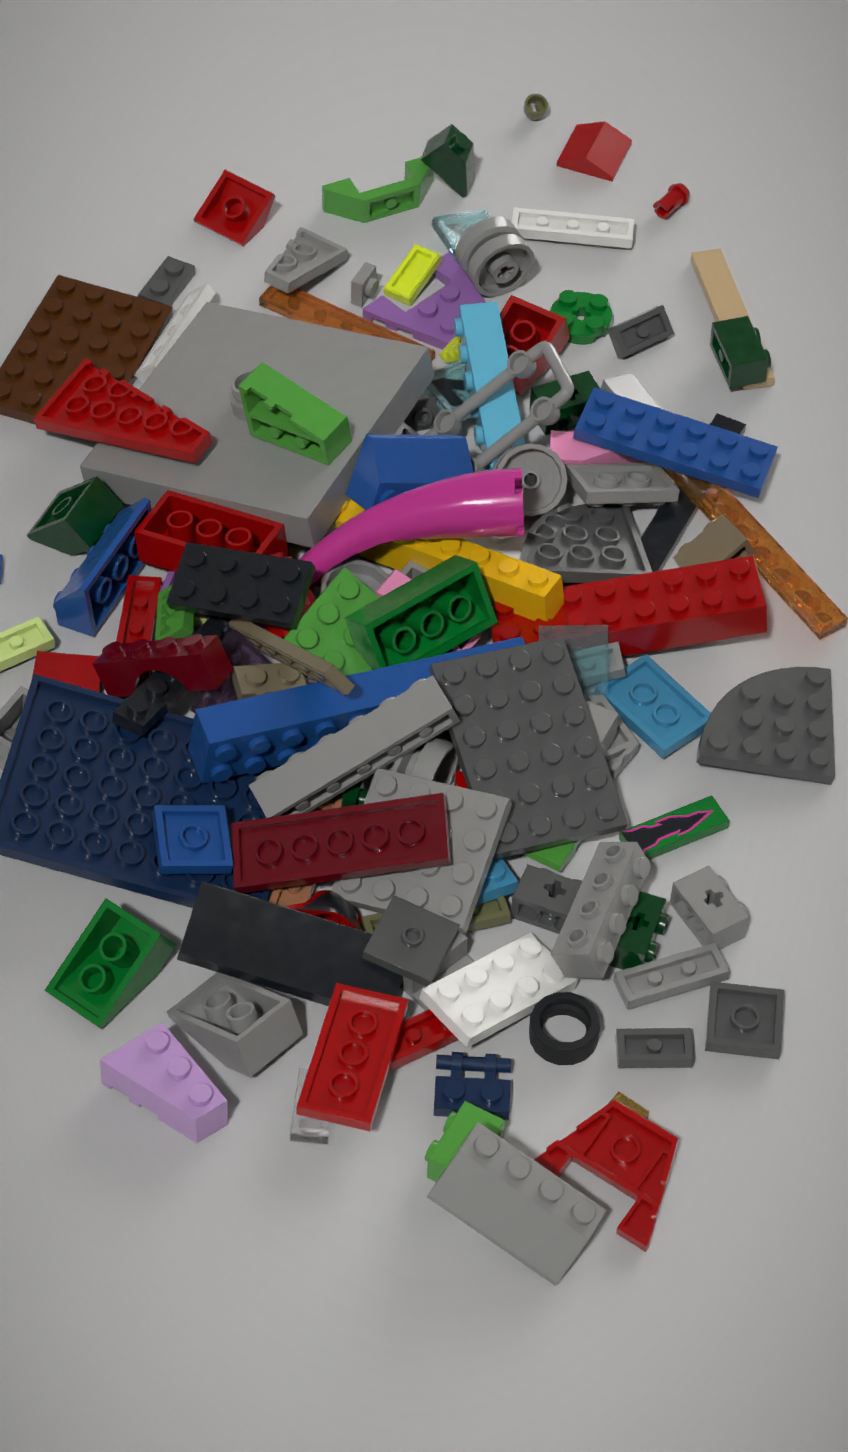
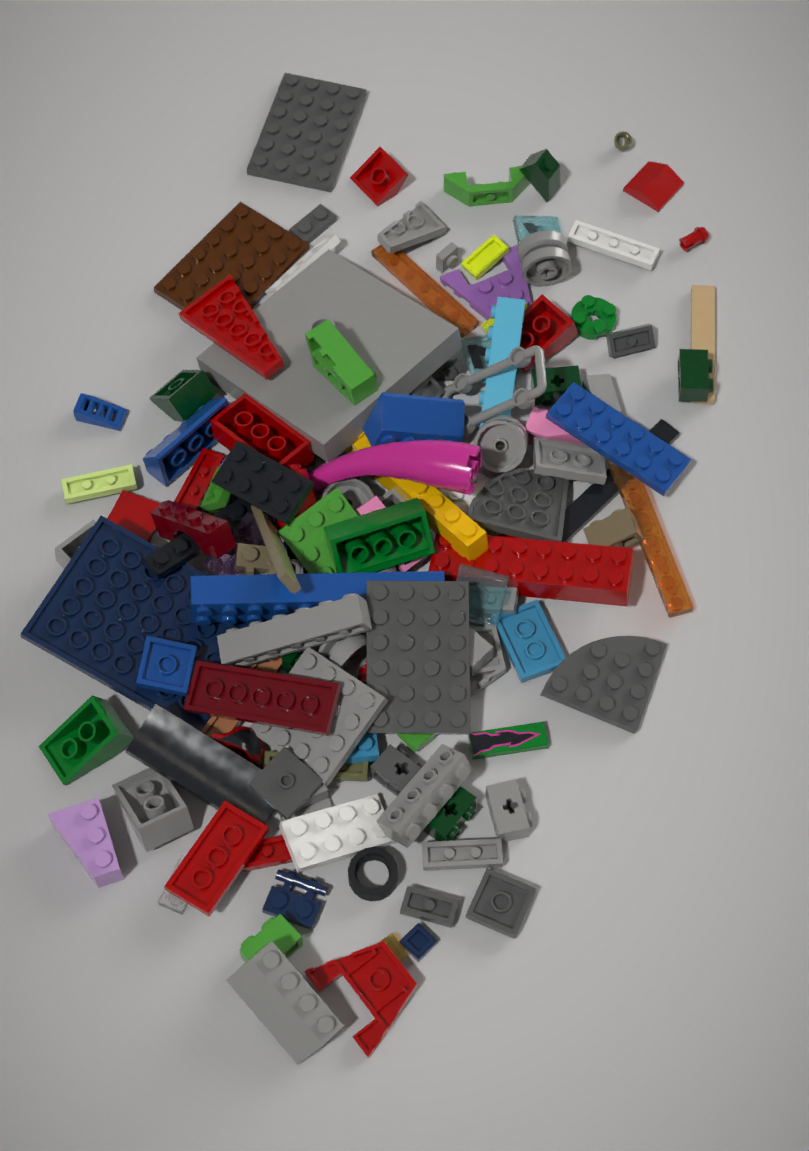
camera: 20 degrees right, 10 degrees up
(113, 177) = (307, 132): none -> dark grey plate
(656, 1095) = (418, 942): none -> dark blue tile

